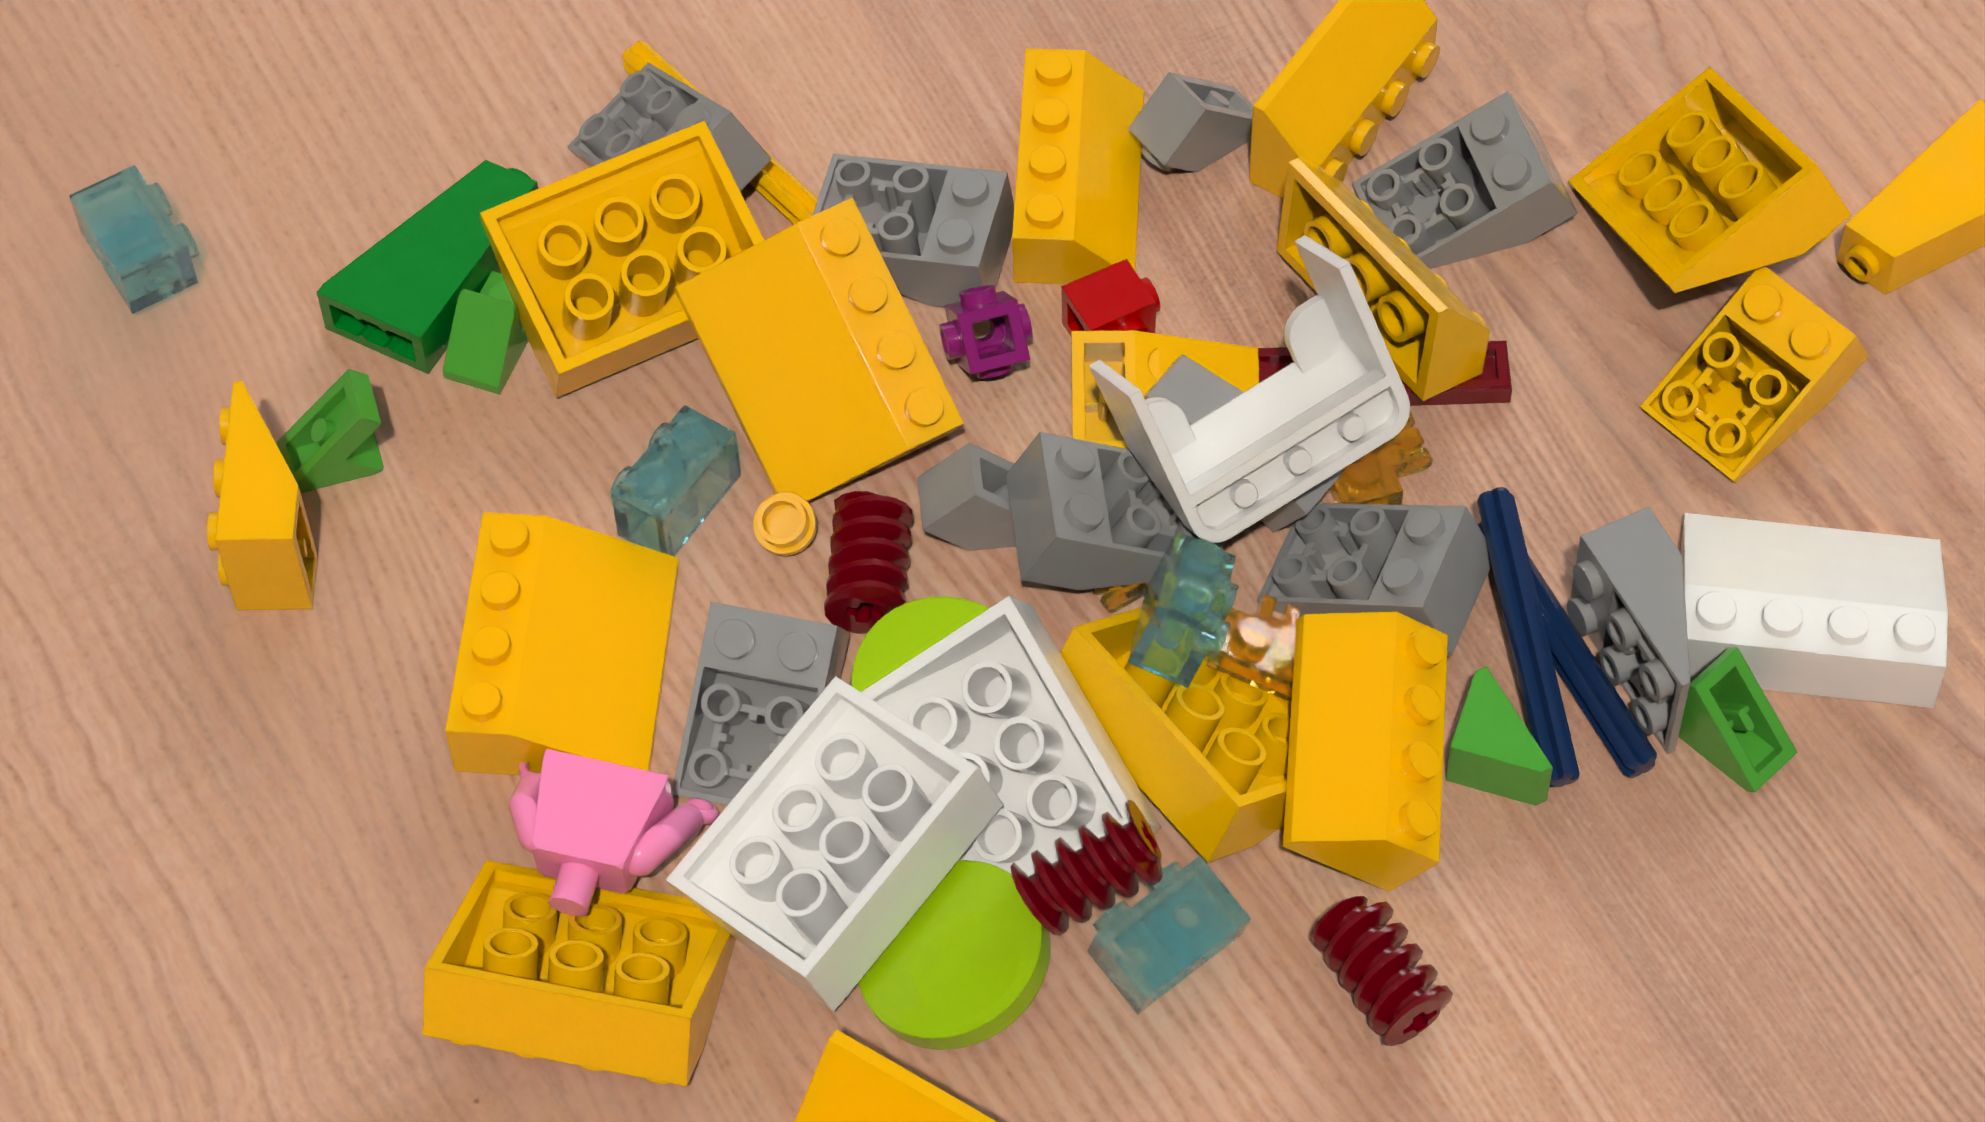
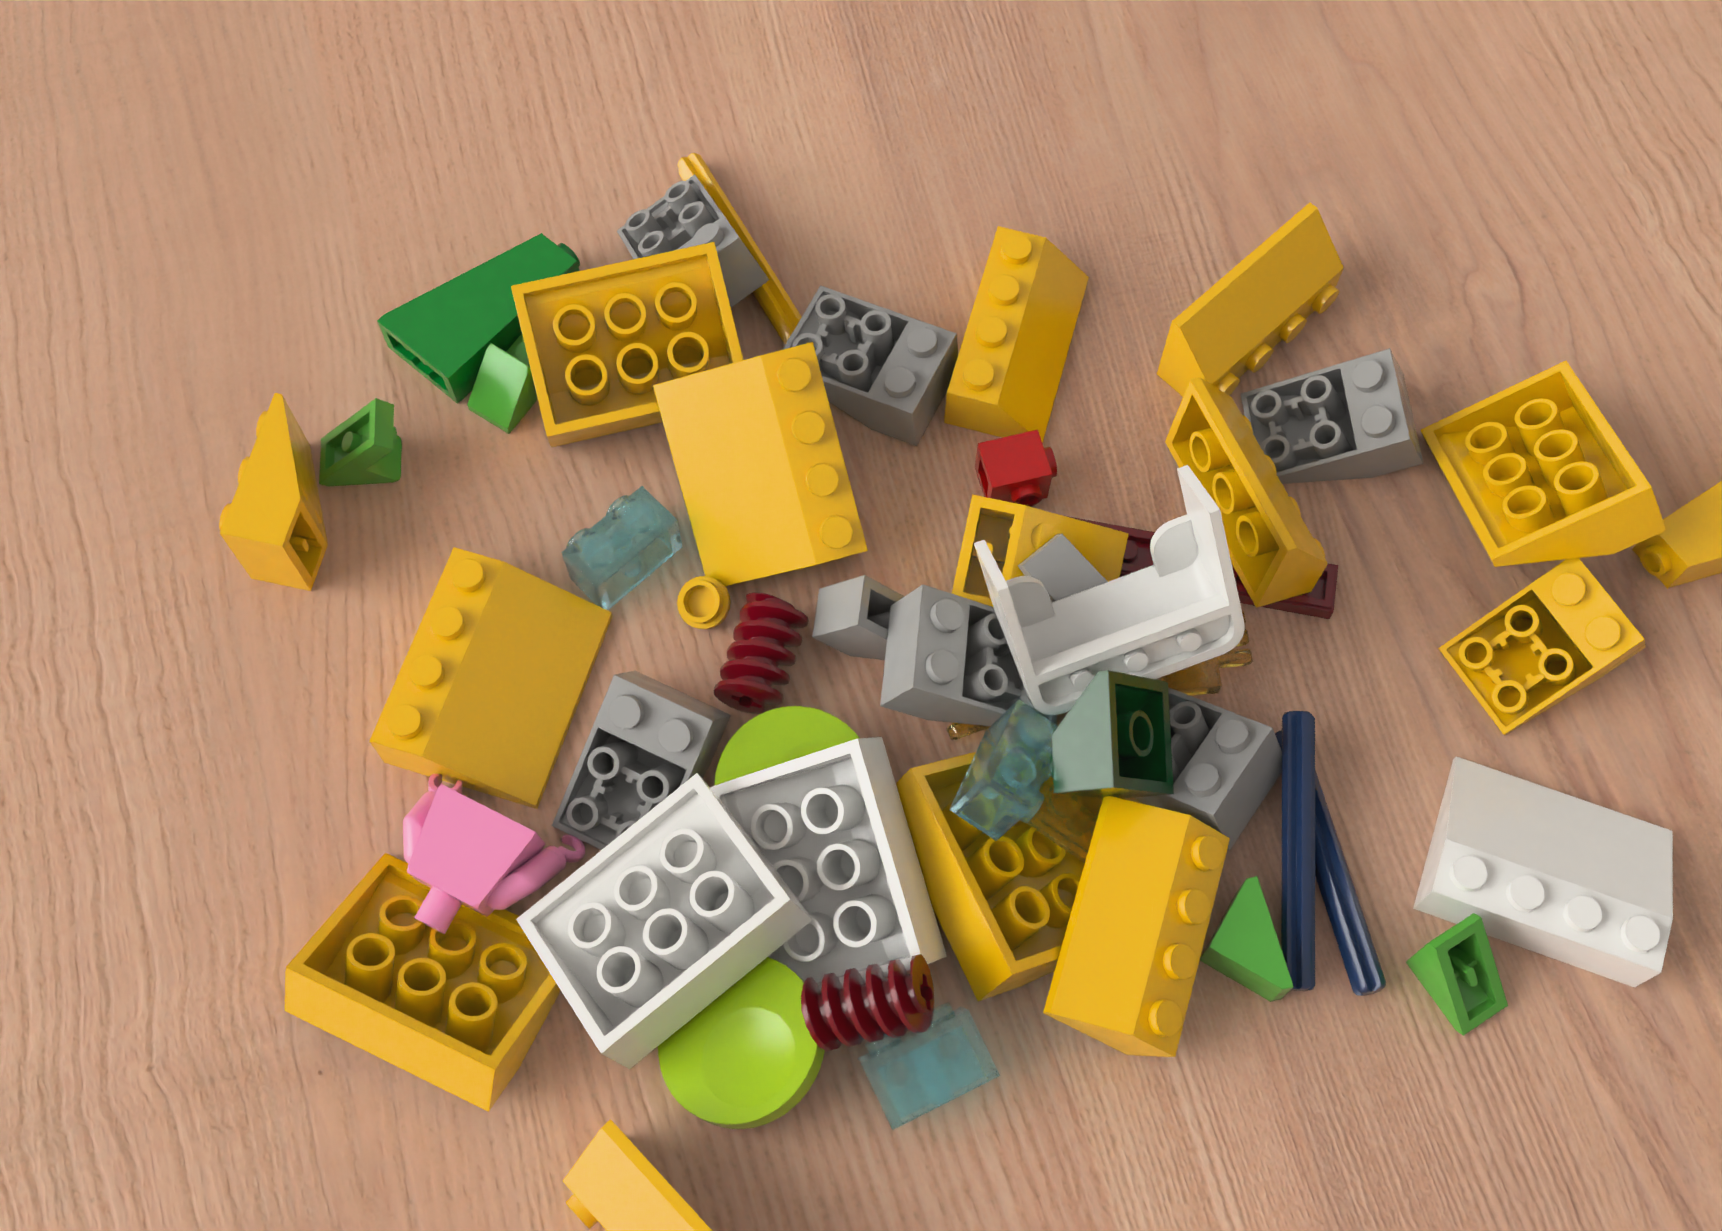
camera: 10 degrees right, 10 degrees up
(135, 238) = (252, 242): clear light blue brick -> none
(1004, 342) = (911, 484): magenta brick -> none
(1192, 123) = (1121, 316): light grey slope -> none
(1294, 549) = (1115, 740): none -> dark green slope
(1378, 970) = (1104, 1142): dark red piece -> none
(1634, 611) = (1400, 851): light grey slope -> none

